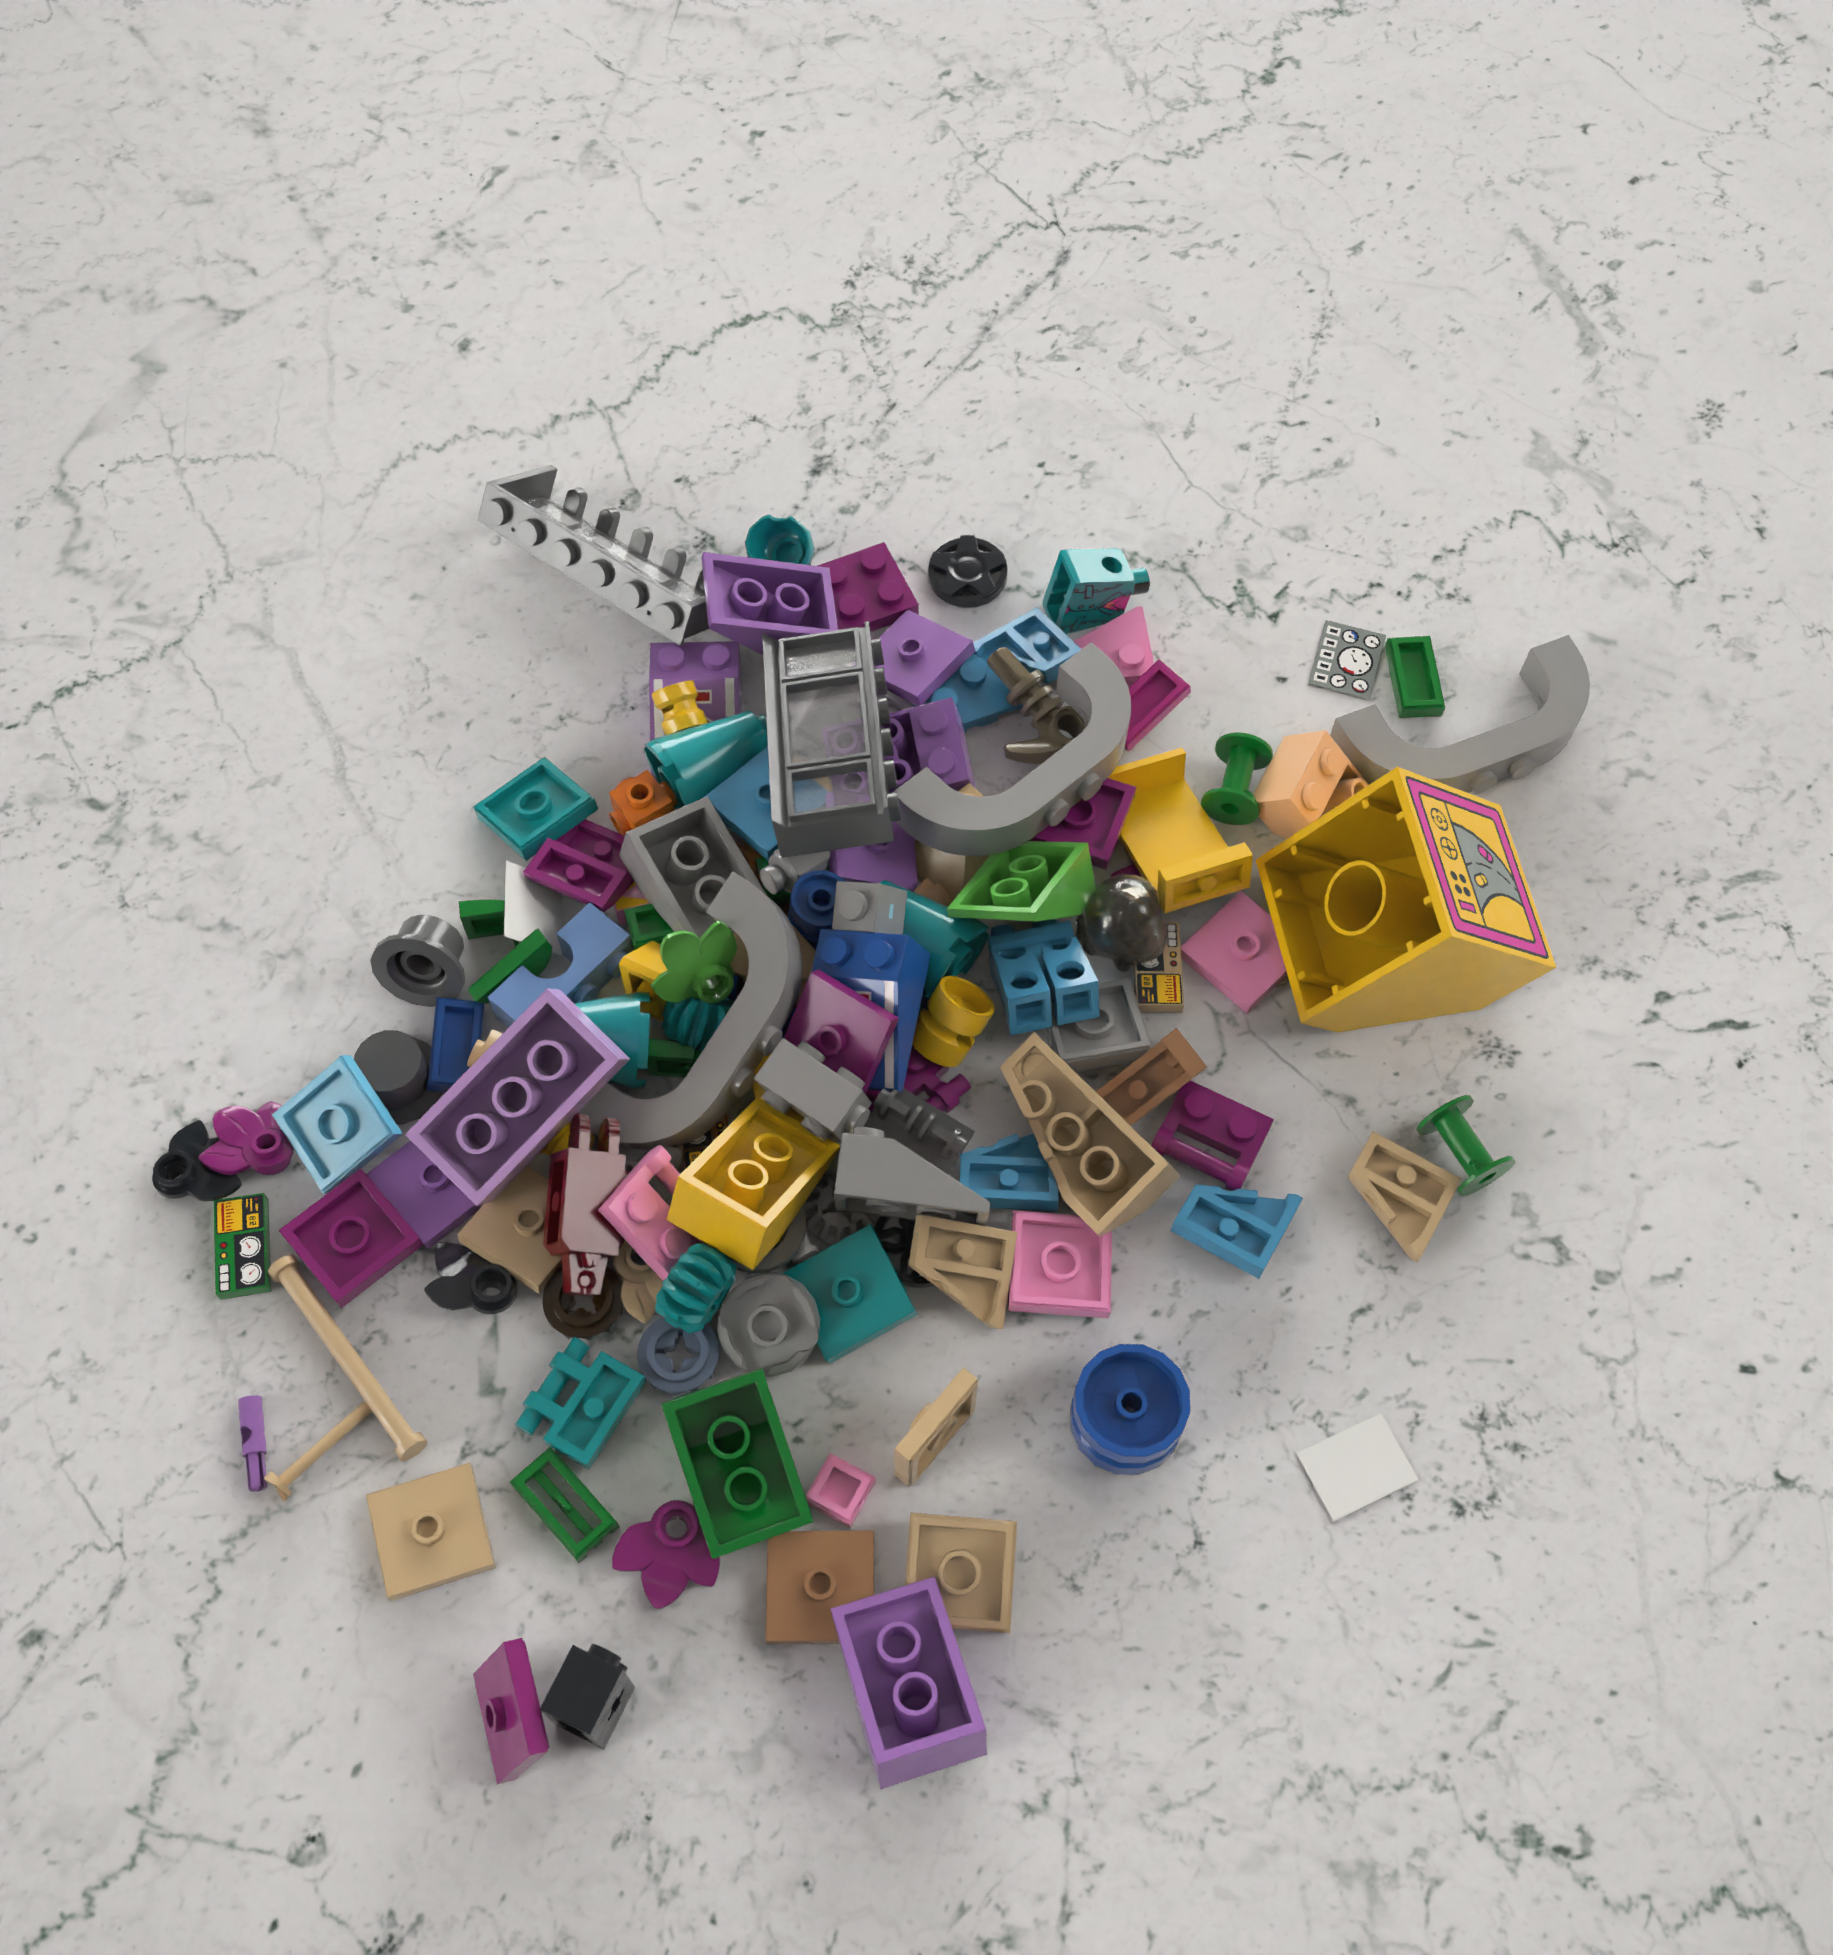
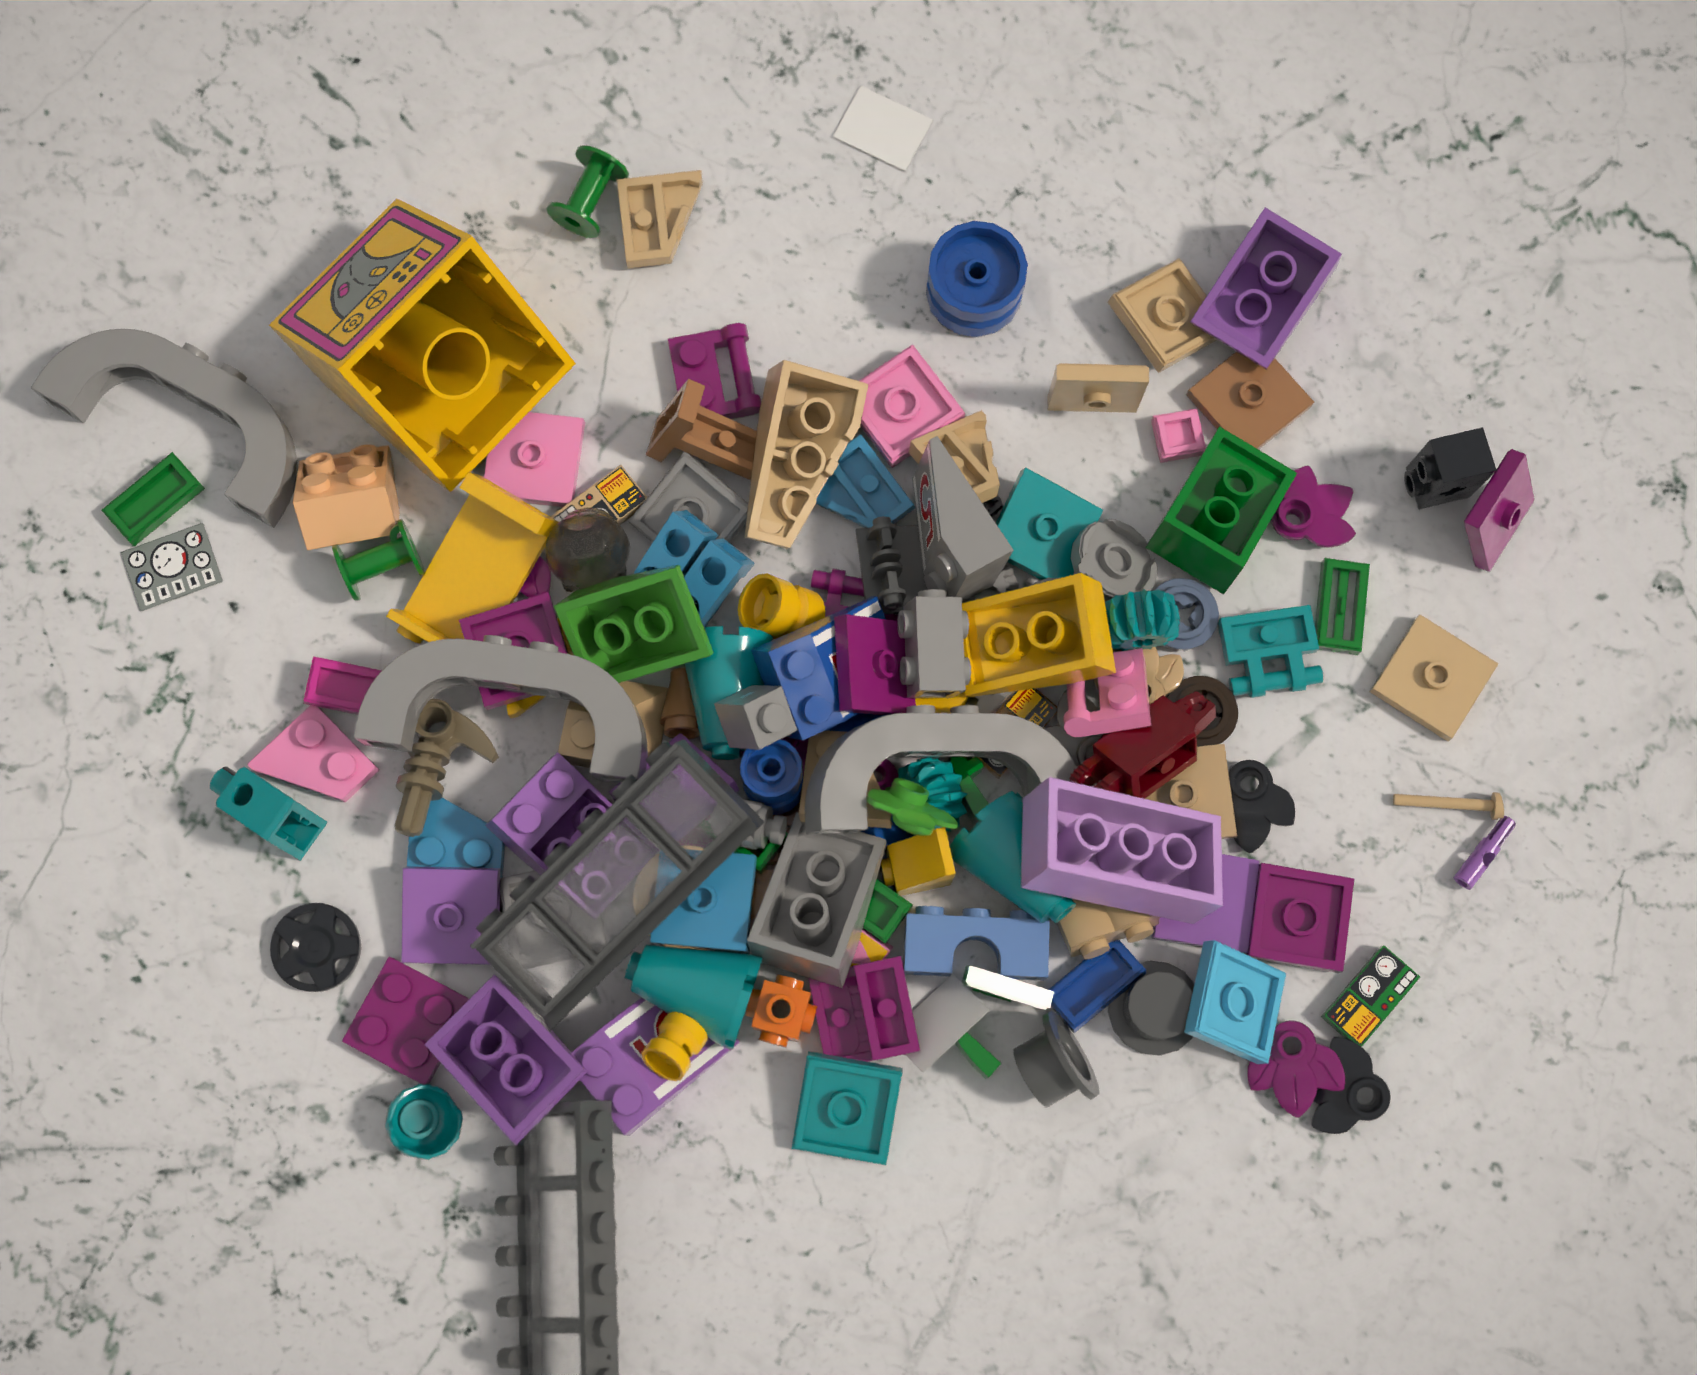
camera: 130 degrees left, 15 degrees up
(408, 1443) = (1378, 843): tan bar -> none
(1033, 641) = (364, 821): dark azure wing -> none
(1236, 1224) = (773, 308): dark azure wing -> none

